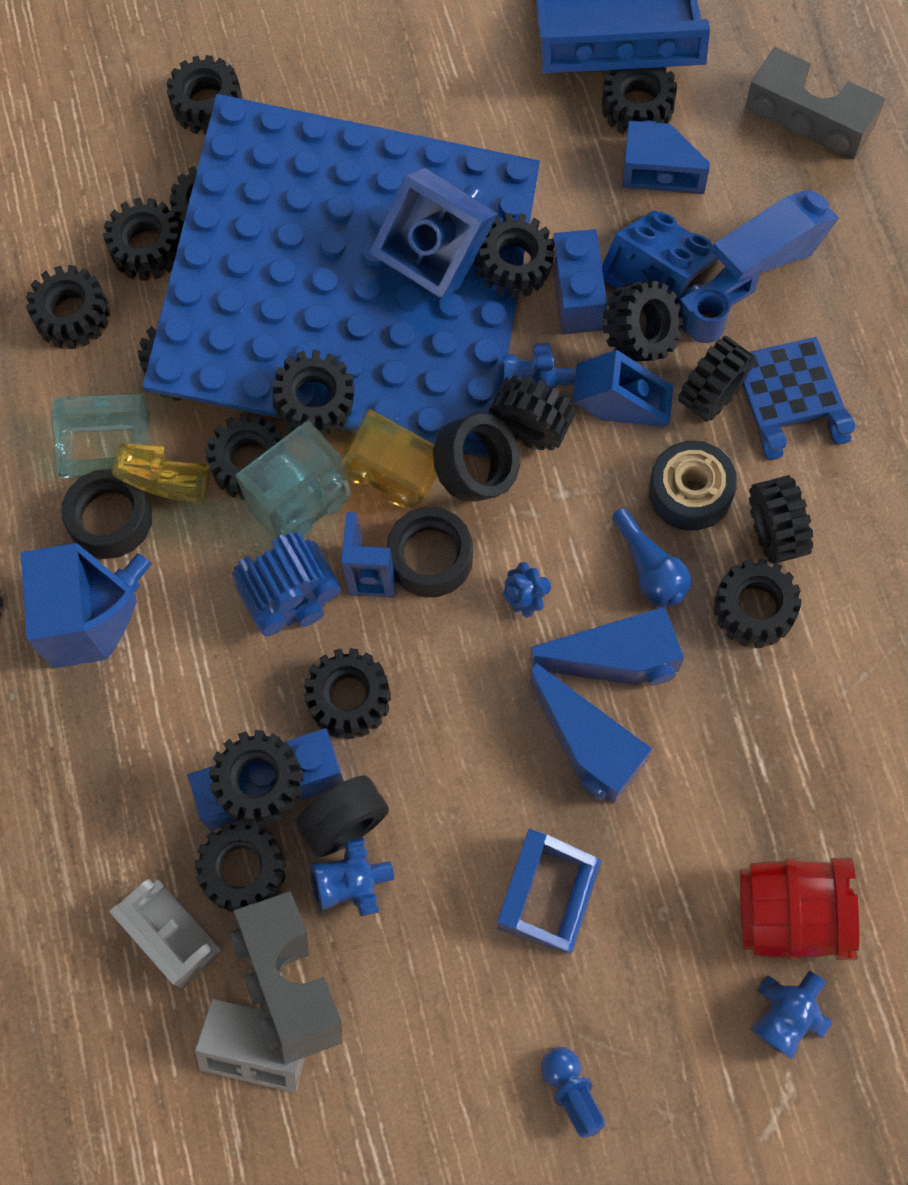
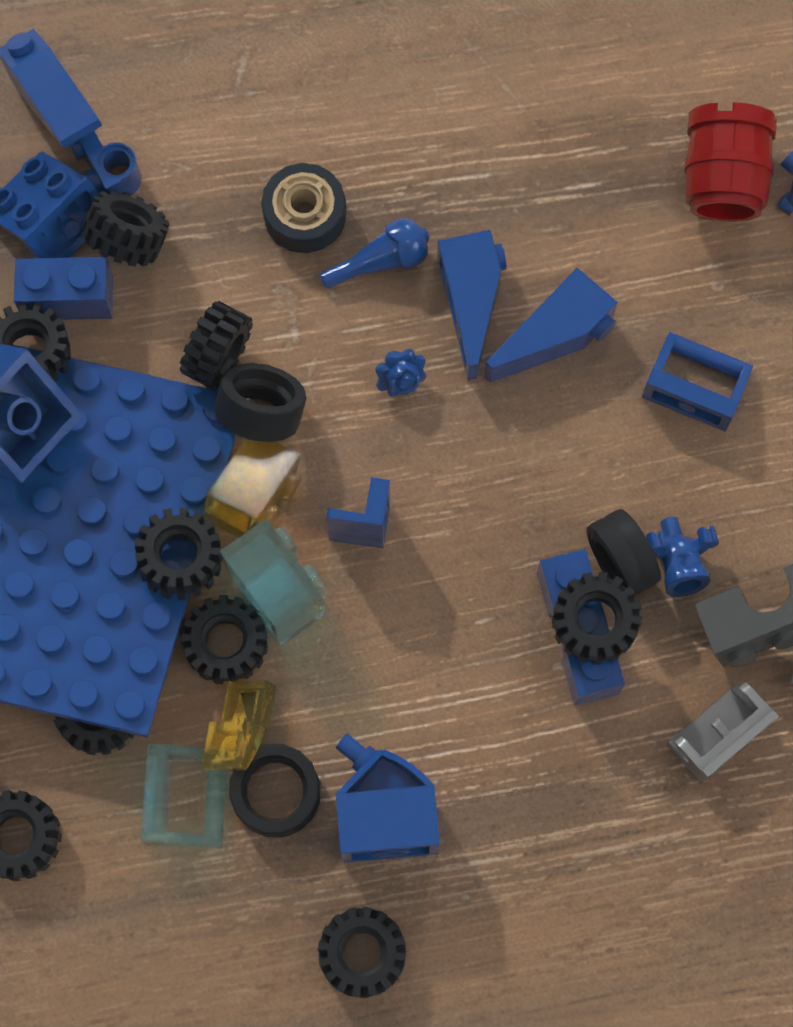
camera: 90 degrees left, 5 degrees up
(226, 841) = (691, 653): black tyre -> none
(286, 584) = (383, 595): blue brick -> none
(347, 666) = (494, 522): black tyre -> none
(431, 519) = (340, 428): black tyre -> none
(538, 368) = (163, 345): blue piece -> none
(622, 391) = (195, 262): blue slope -> none
(716, 378) = (199, 166): black tyre -> none
(769, 580) = (428, 141): black tyre -> none
(781, 519) = (356, 128): black tyre -> none
(791, 387) = (205, 107): blue flag -> none

